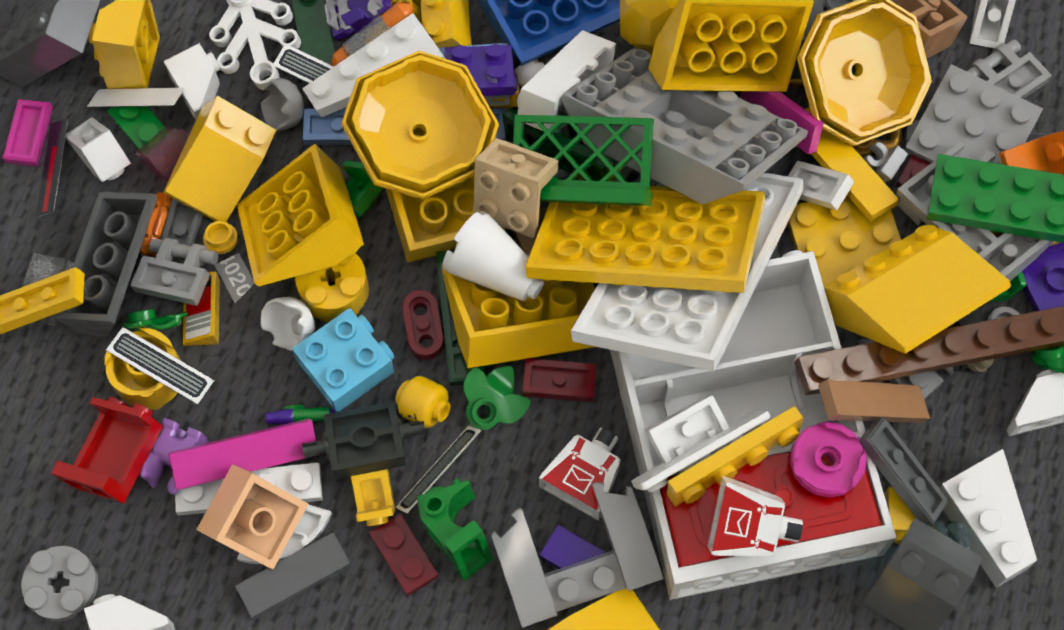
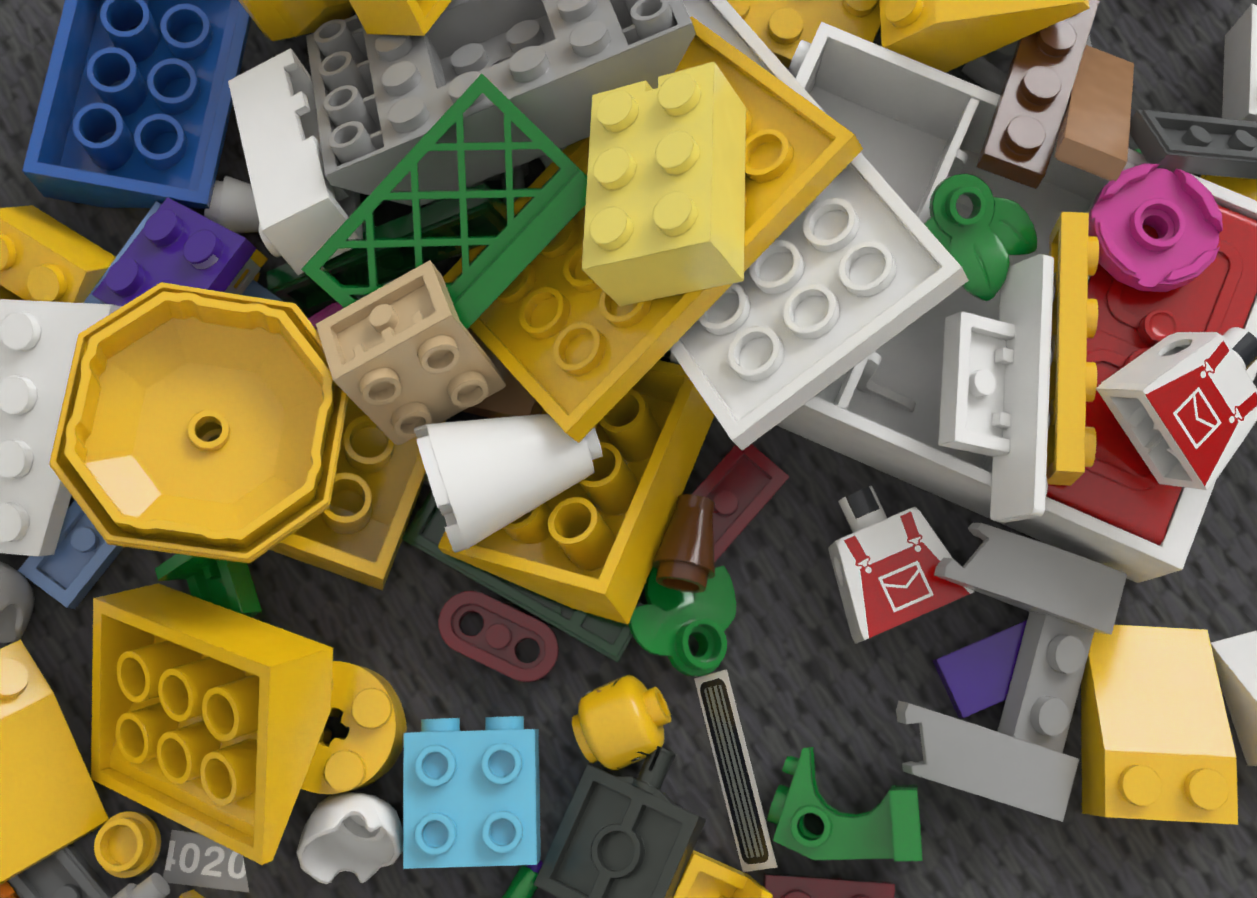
camera: 55 degrees left, 10 degrees up
(522, 371) = (687, 548): none -> reddish brown cone
(663, 226) = (666, 187): none -> light yellow piece
(755, 387) = (983, 239): none -> green plate

